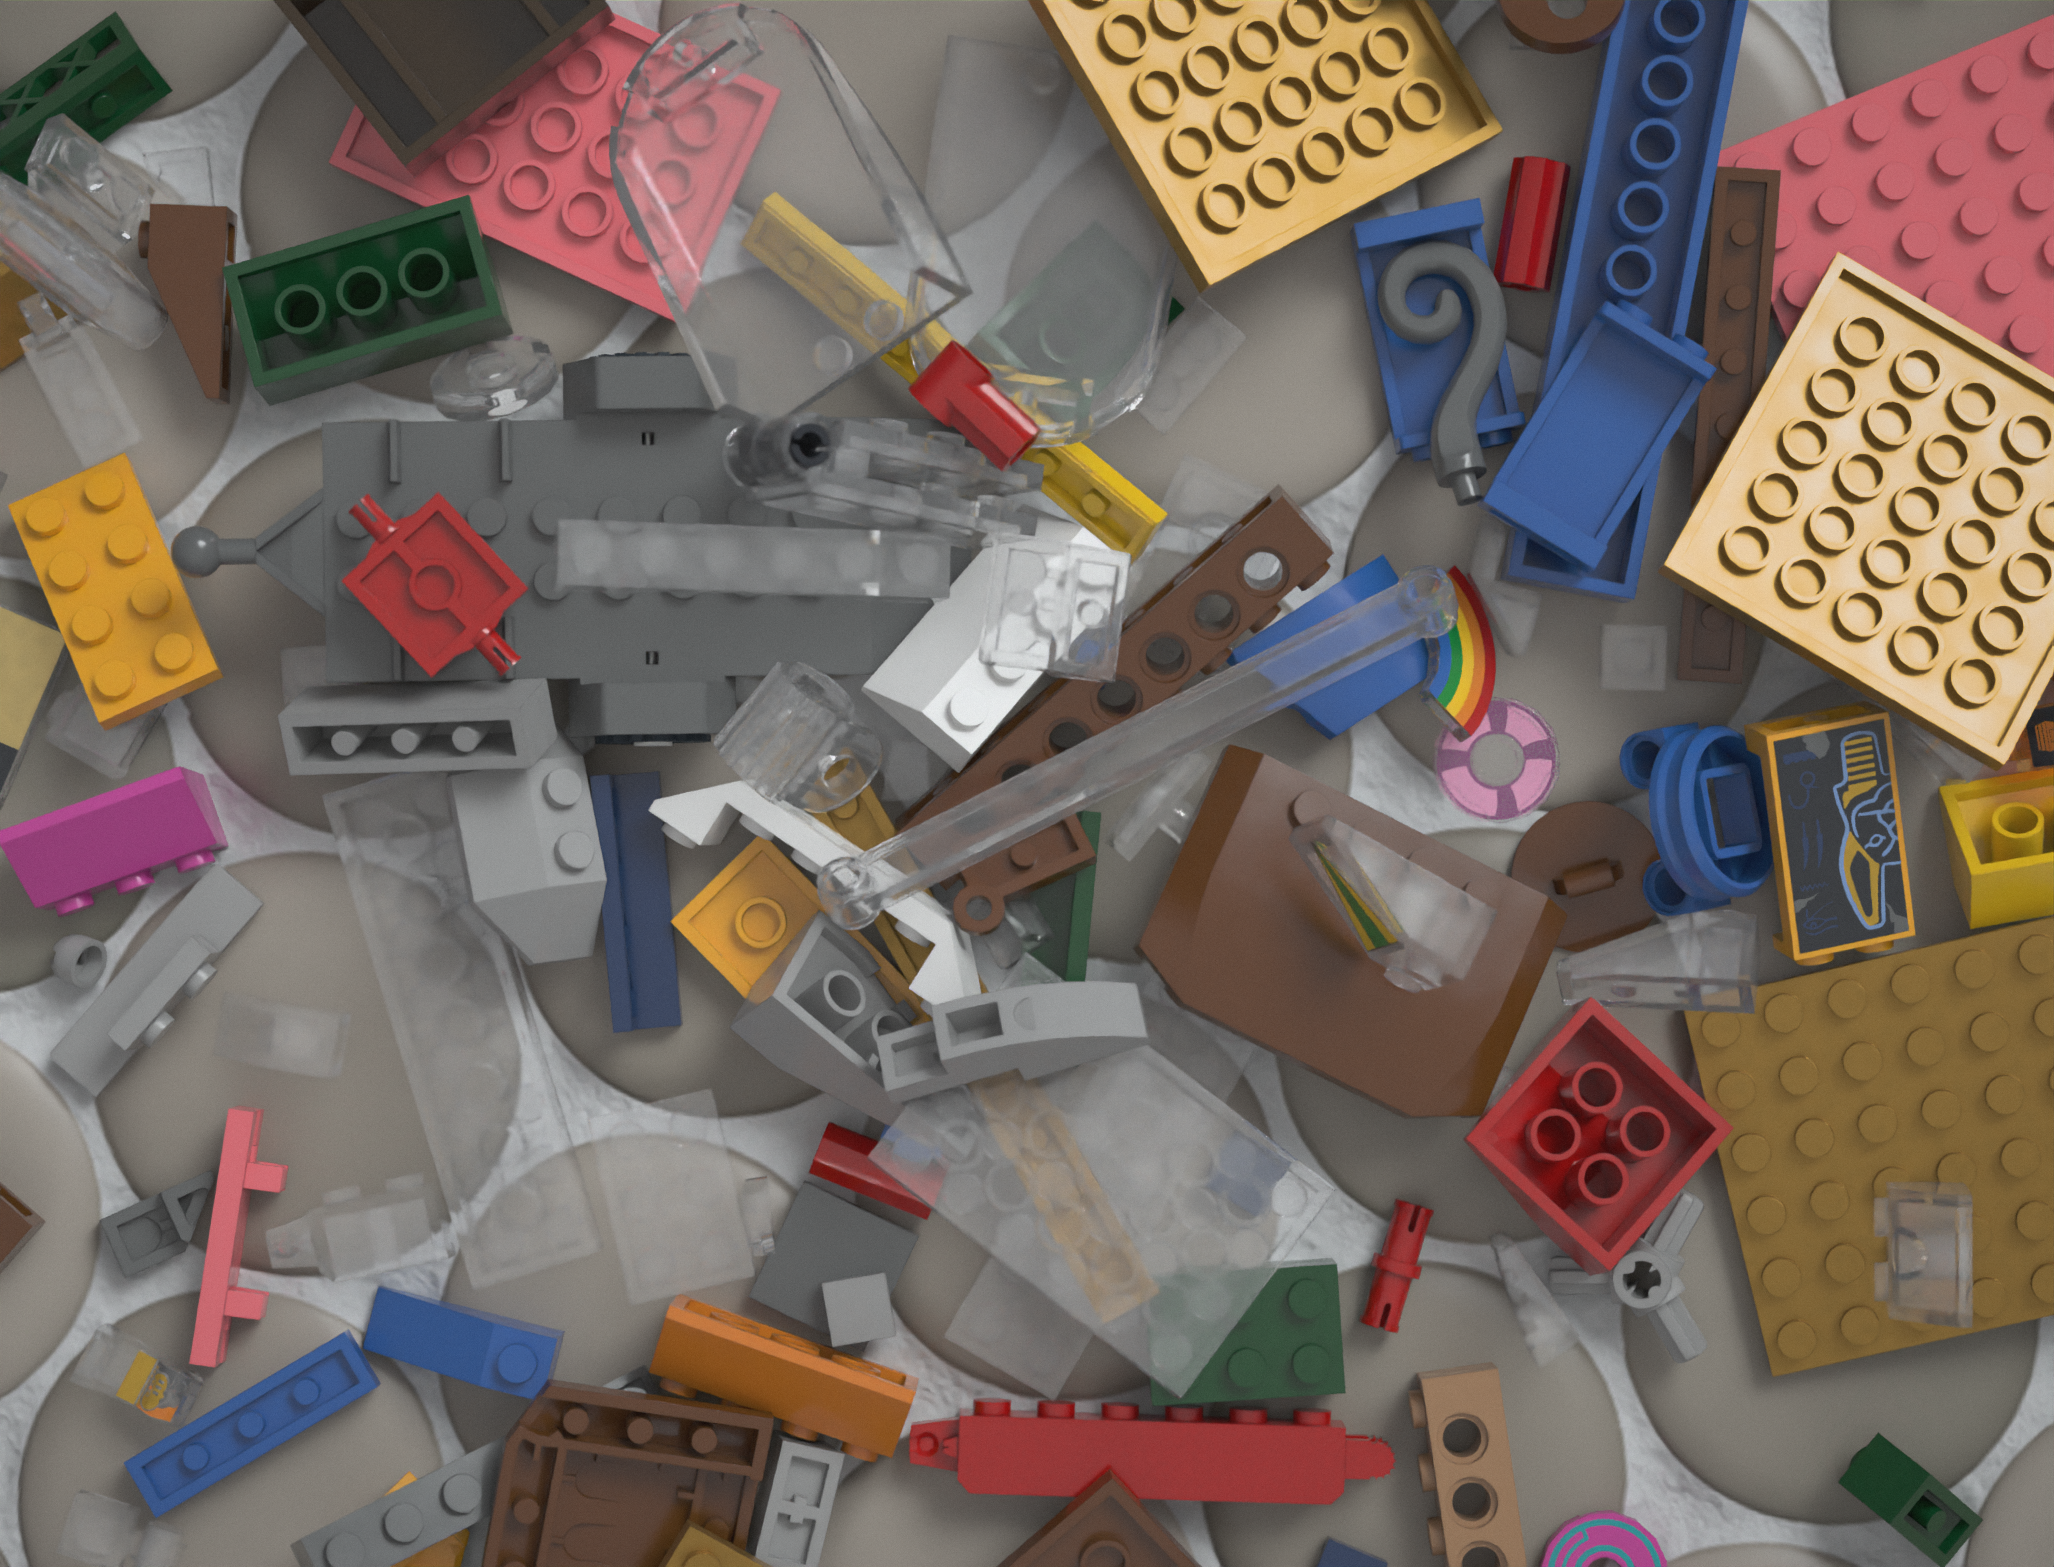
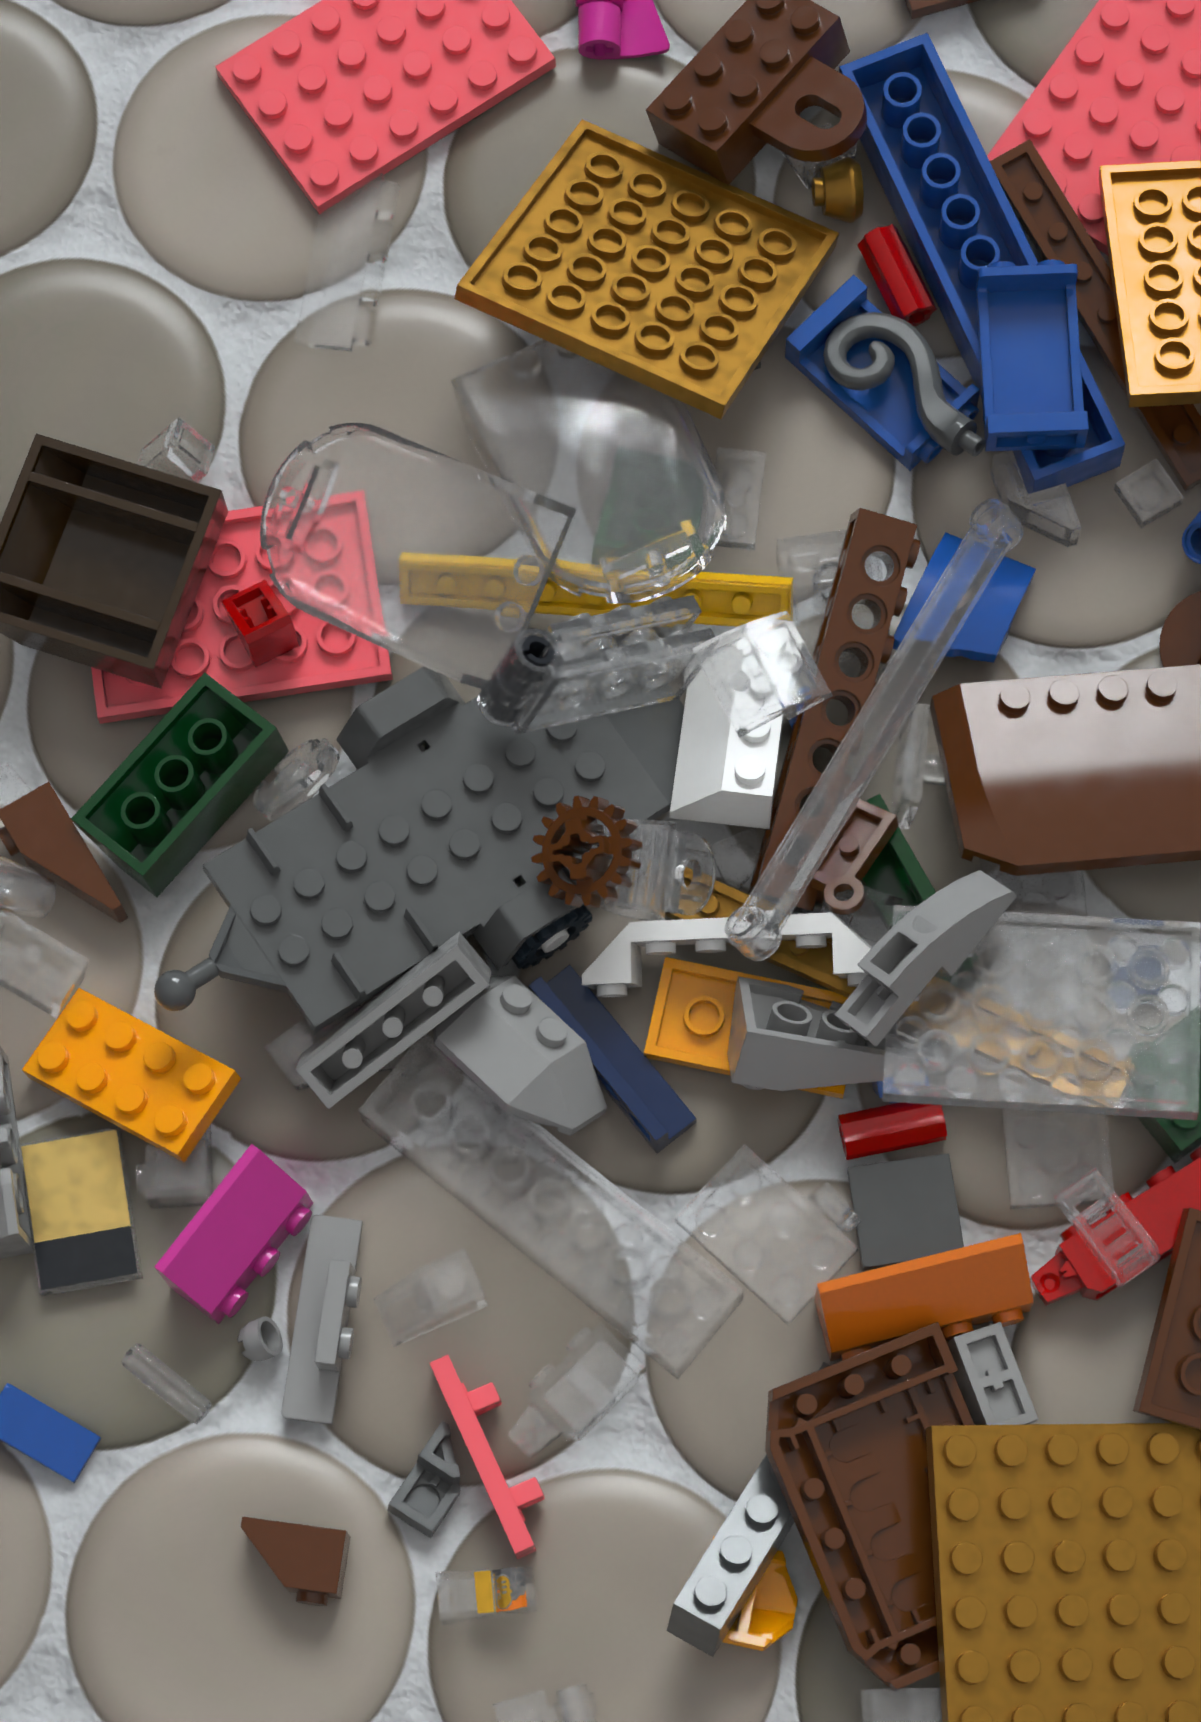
camera: 30 degrees left, 15 degrees down
(252, 1423) = (584, 1574): blue gear -> none
(434, 585) = (347, 910): red plate -> none
(463, 1342) = (691, 1423): blue slope -> none
(567, 171) = (261, 622): none -> red slope
(703, 710) = (599, 868): none -> reddish brown gear
(751, 560) = (479, 804): clear arch -> none
(859, 1308) = (942, 1222): light grey tile -> none
(962, 395) = (612, 573): red piece -> none
(1018, 1490) = (1134, 1261): none -> clear slope
(1395, 909) = (1108, 709): clear slope -> none
(1461, 665) = (1046, 567): tile -> none
(1502, 767) = (1108, 612): clear tile -> none
(1536, 83) = (840, 190): none -> pearl gold cone

